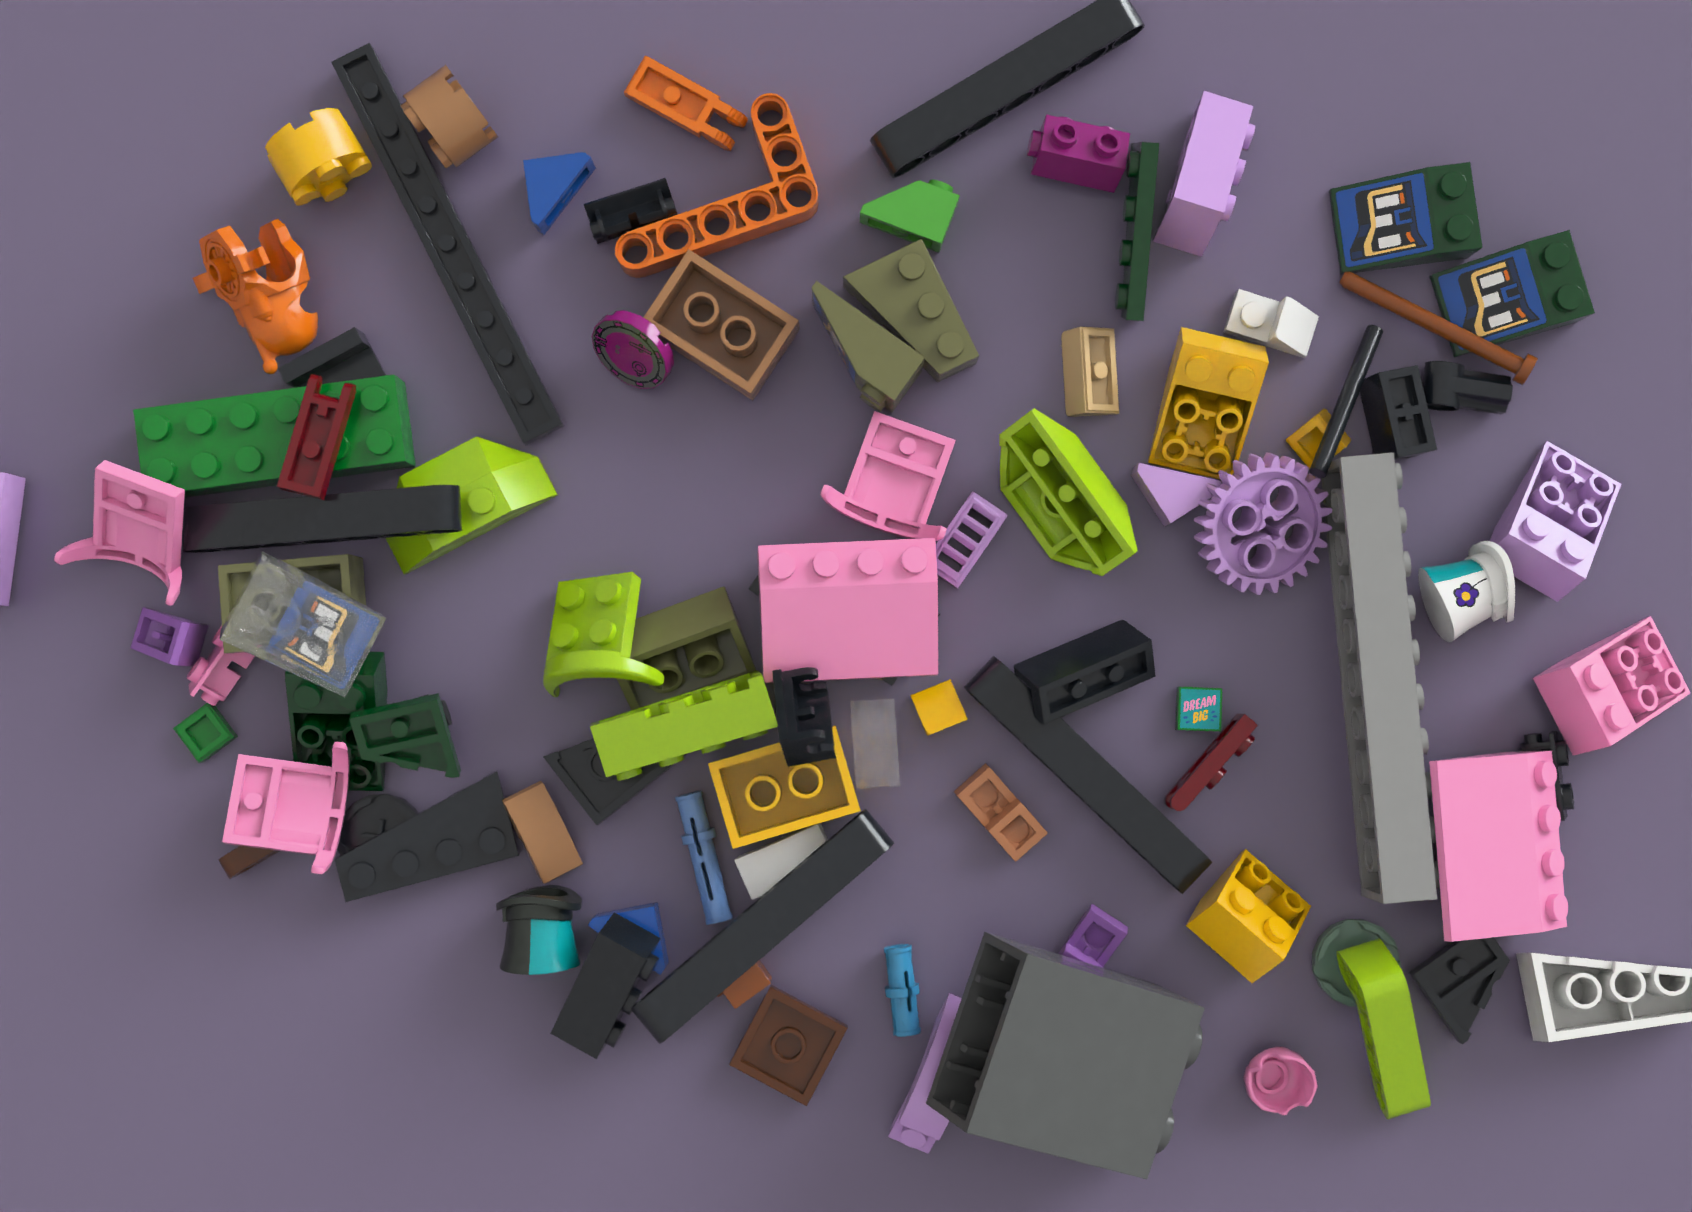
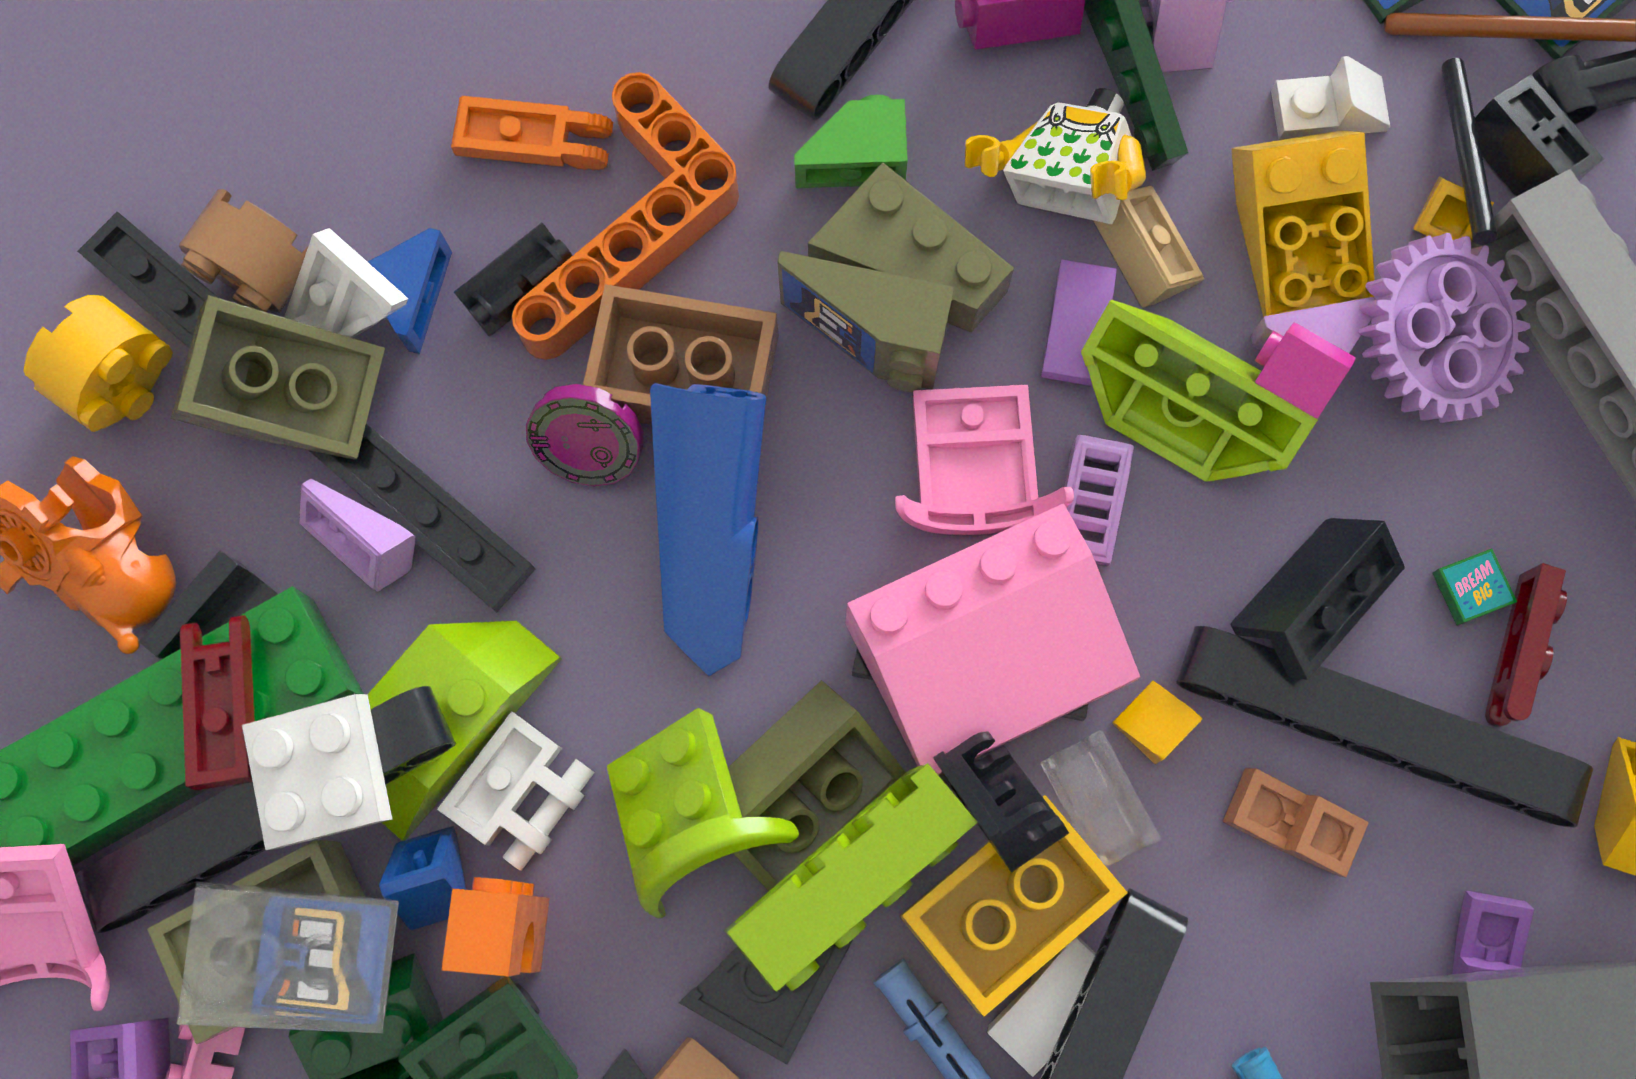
camera: 20 degrees left, 10 degrees down
(364, 513) = (316, 771): none -> white plate
(410, 606) = (423, 877): none -> blue slope
(436, 222) = (277, 380): none -> olive slope
(443, 662) = (495, 929): none -> orange arch
(452, 355) = (358, 536): none -> lavender slope
(485, 561) = (501, 780): none -> white plate
(502, 175) = (340, 289): none -> white wing
(692, 441) = (706, 501): none -> blue panel
(1021, 392) = (1078, 303): none -> medium lavender slope
(1057, 287) = (1069, 160): none -> torso
(1142, 513) = (1302, 368): none -> dark pink brick

